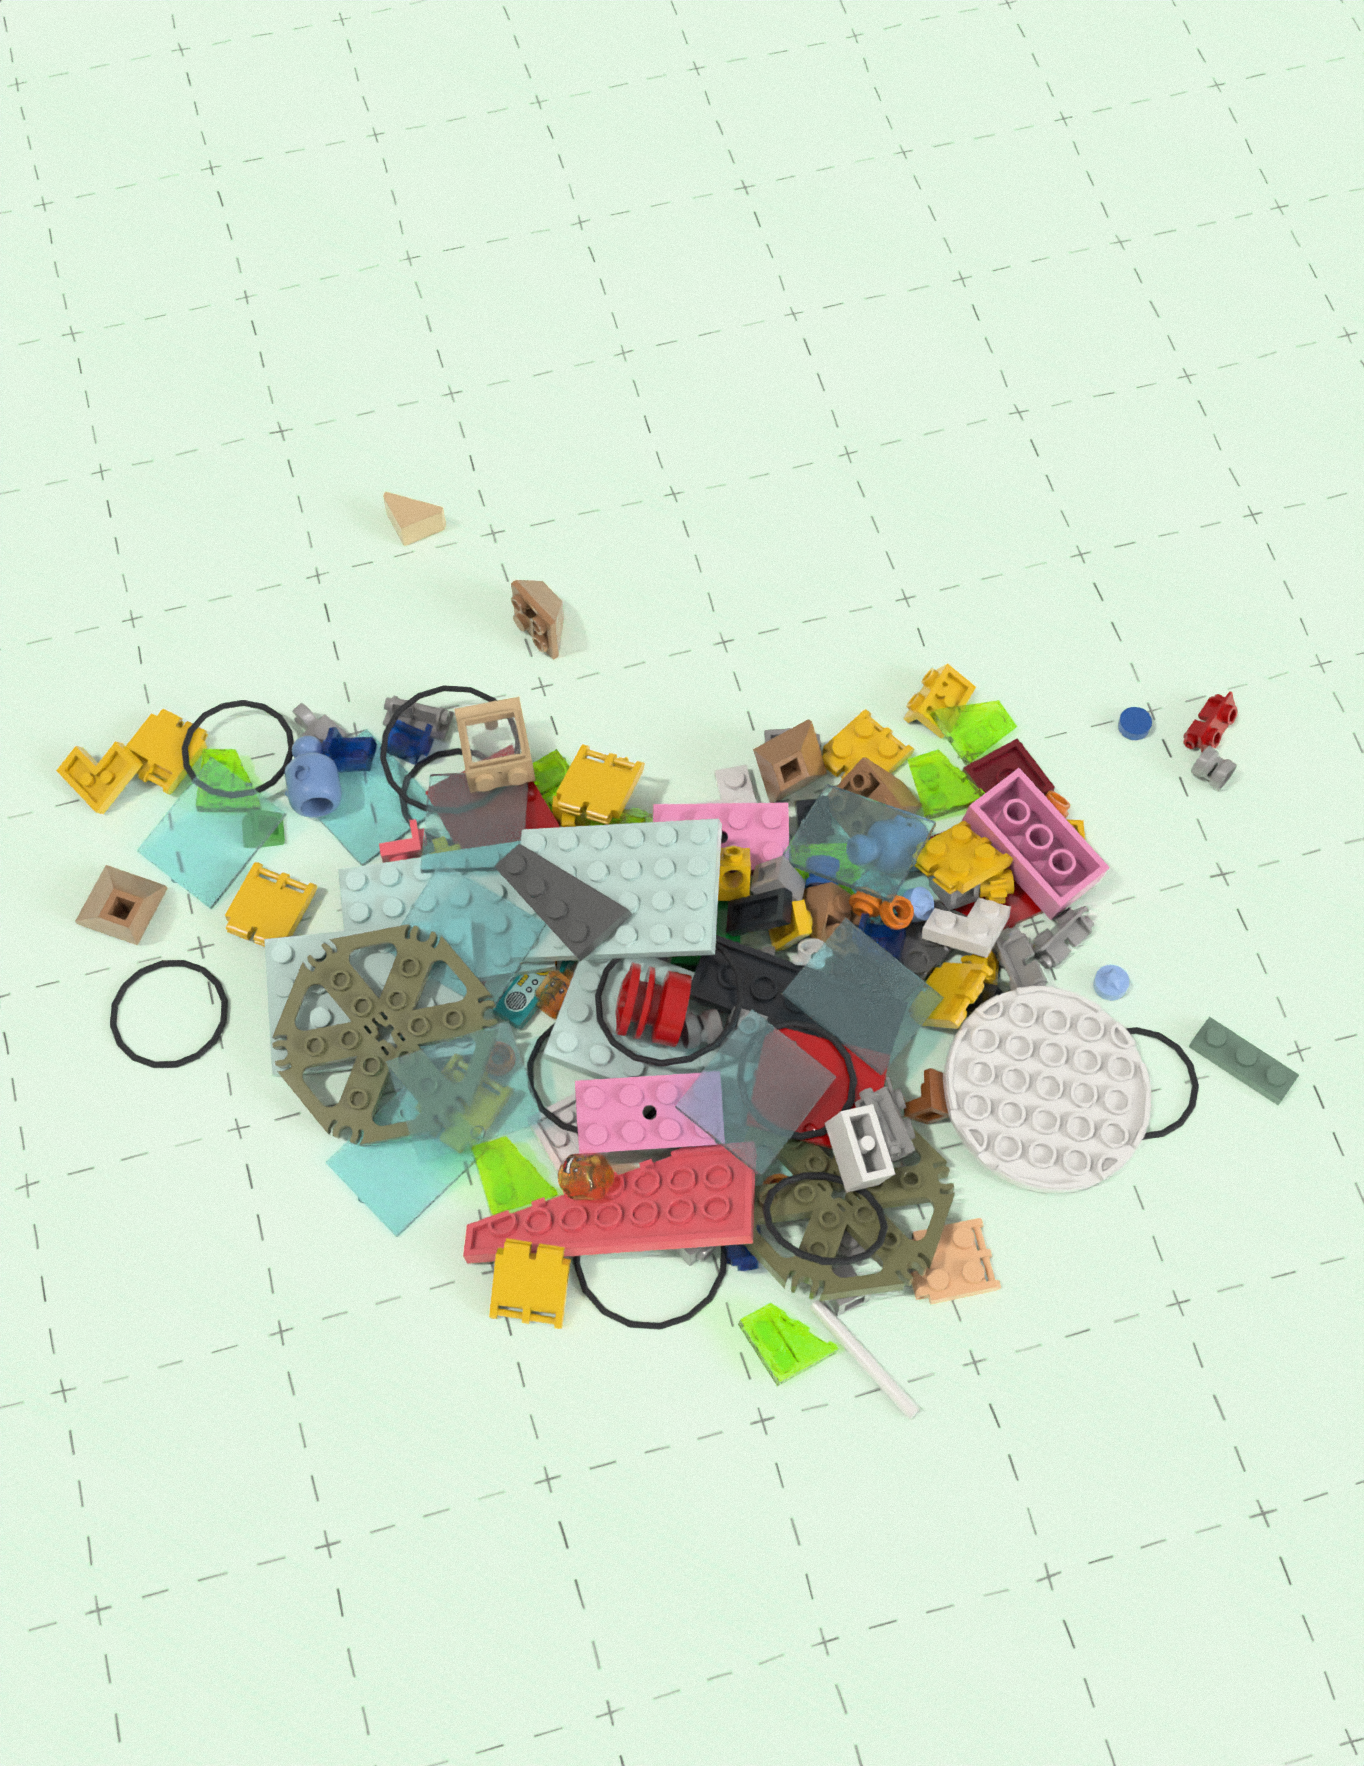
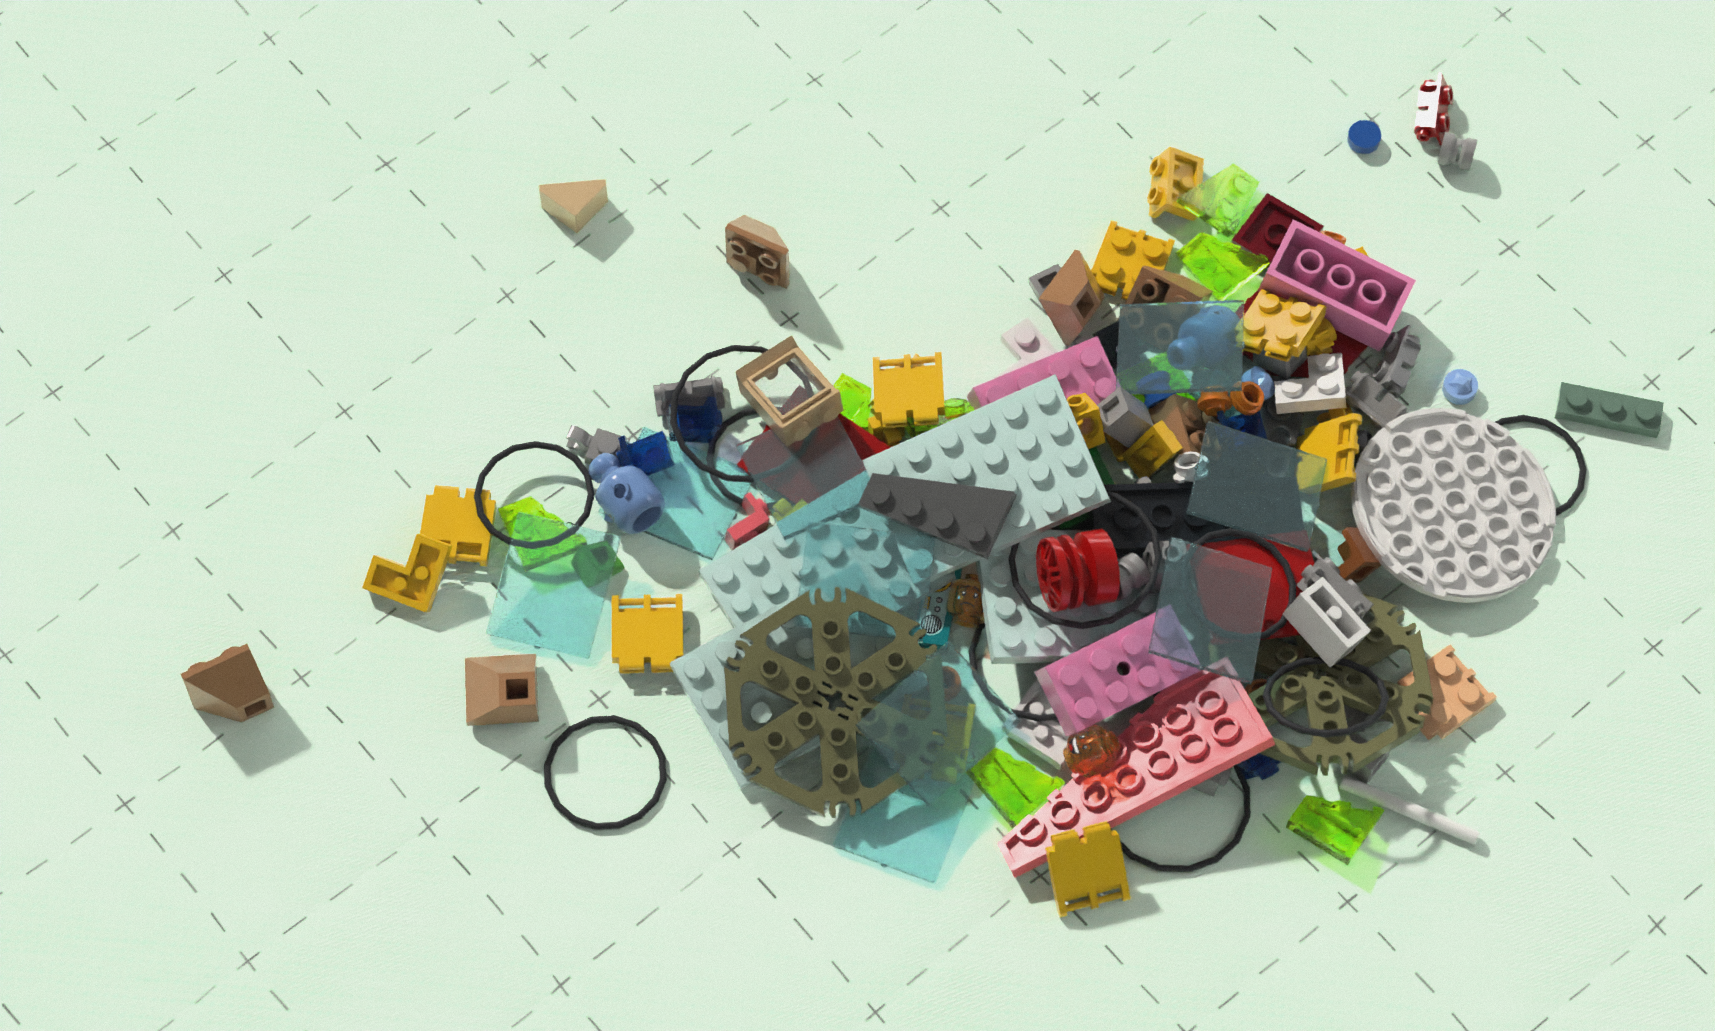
camera: 25 degrees left, 0 degrees up
(759, 912) = (1125, 447): black hinge -> none

